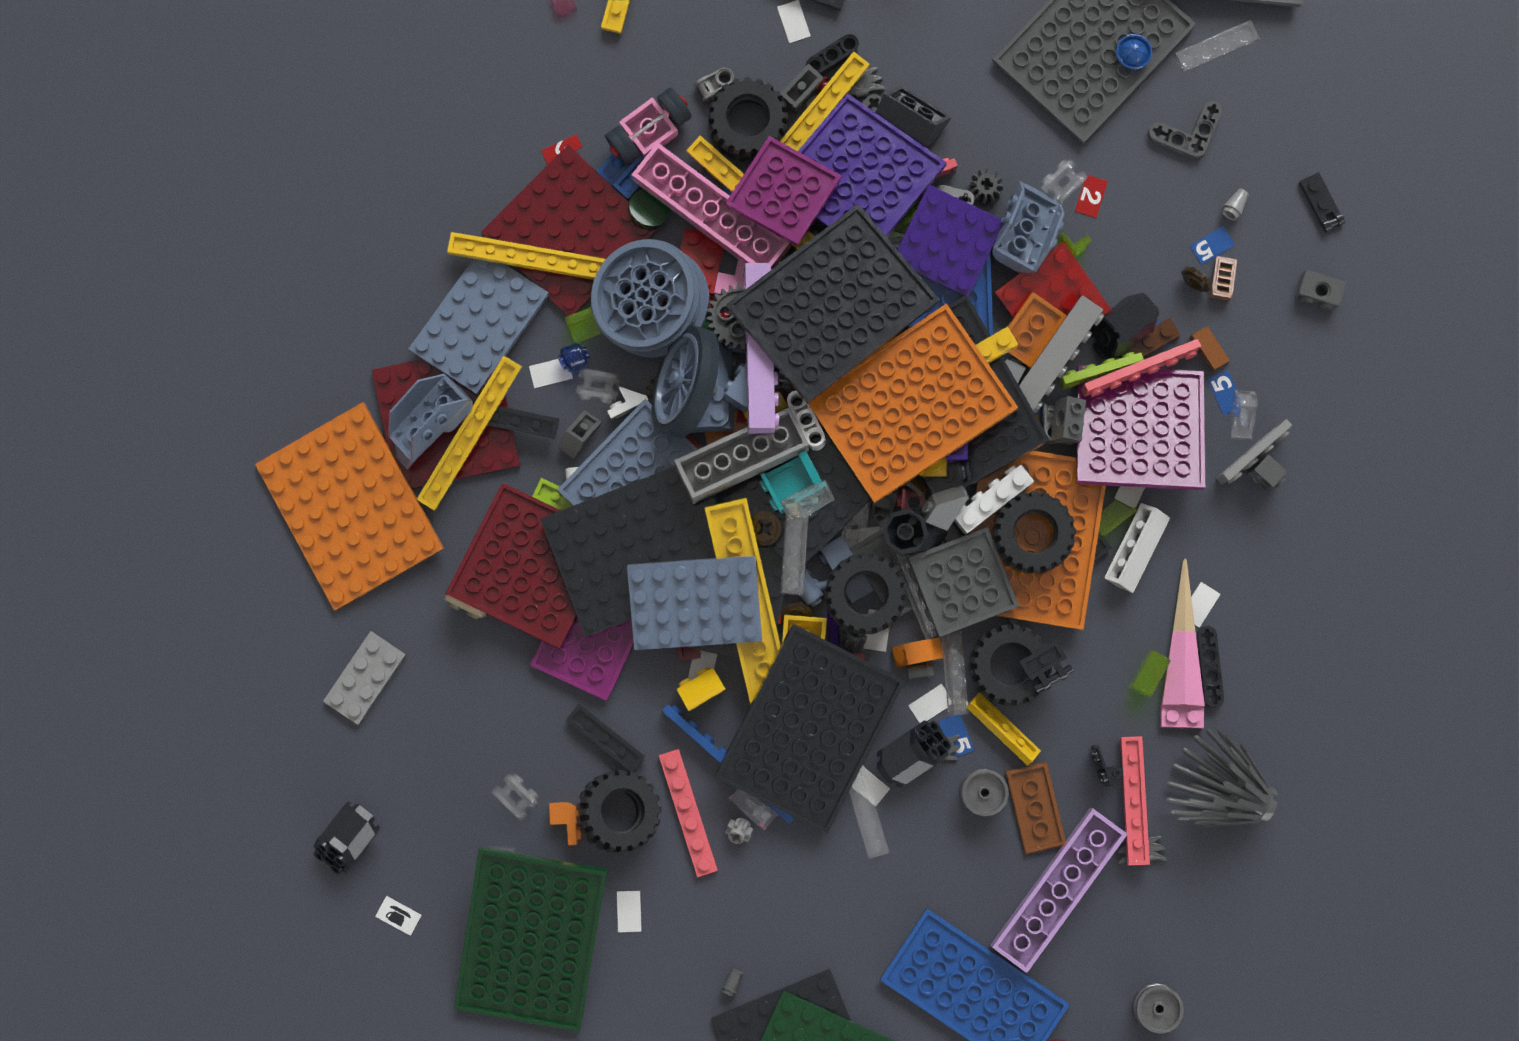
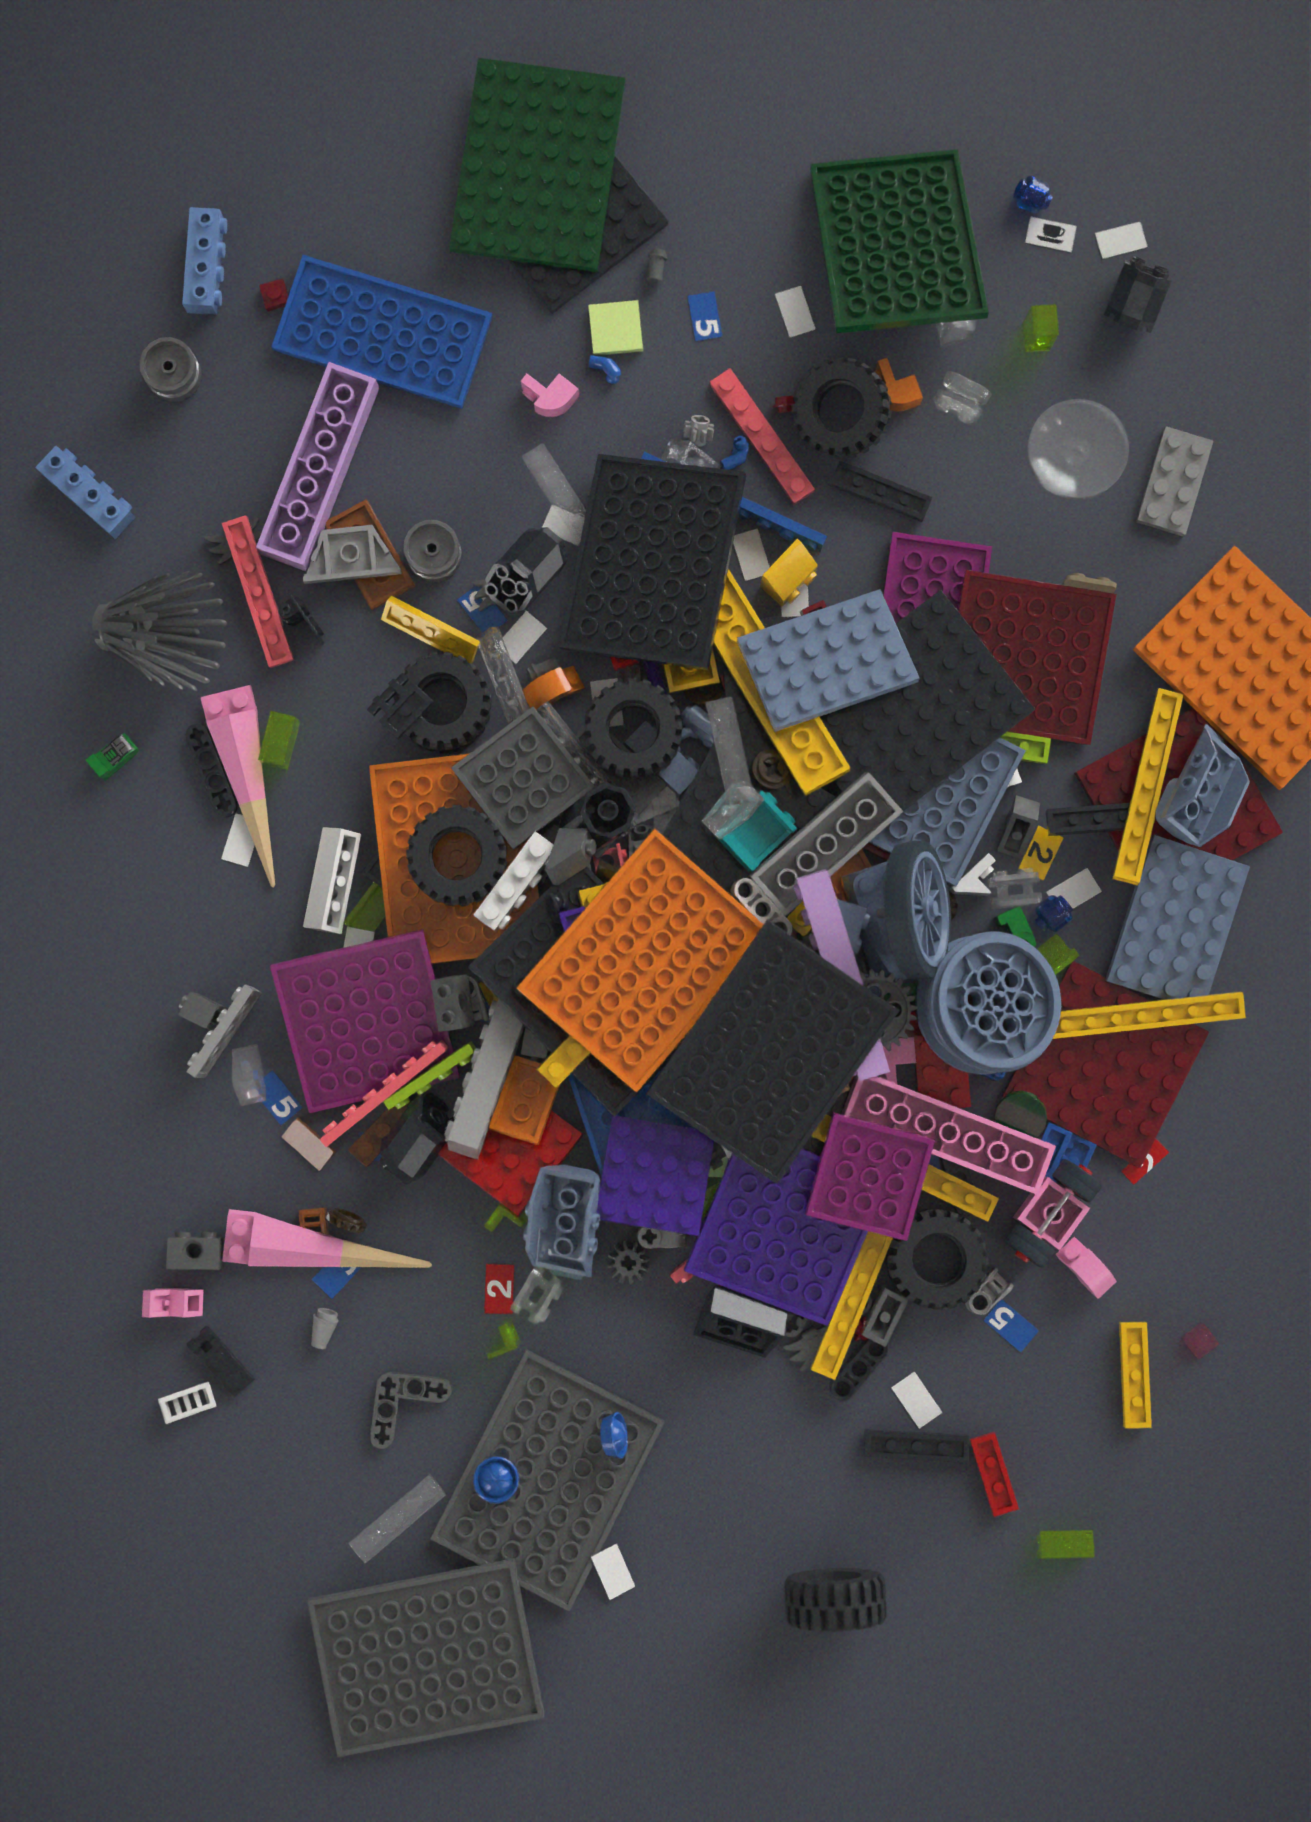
camera: 160 degrees right, 0 degrees up
(342, 893) = (1121, 240): none -> white sticker
(404, 951) = (1032, 194): none -> clear blue head
(435, 833) = (1040, 328): none -> clear neon green panel
(436, 724) = (1077, 449): none -> clear dish
(568, 409) = (1041, 852): none -> yellow sticker
(605, 355) = (1016, 924): none -> green leg
(634, 80) = (1086, 1267): none -> bright pink brick
(662, 834) = (784, 403): none -> dark red plate
(704, 55) = (1011, 1325): none -> blue sticker
(704, 929) = (704, 316): none -> blue sticker
(711, 803) = (739, 453): none -> blue arm
(725, 717) = (751, 554): none -> white sticker
(781, 939) = (615, 328): none -> yellowish green tile
(796, 907) = (608, 366): none -> blue arm
(851, 891) = (551, 401): none -> bright pink brick
(1034, 57) = (614, 1435): none -> blue hat
(1051, 808) = (350, 555): none -> light grey wing
(1094, 153) = (510, 1339): none -> clear neon green panel
(1253, 925) = (85, 491): none -> medium blue brick
(1258, 279) = (271, 1242): none -> bright pink plate
(1287, 699) = (113, 756): none -> green leg
(1347, 256) = (172, 1302): none -> bright pink brick
(1355, 171) = (168, 1418): none -> white slope

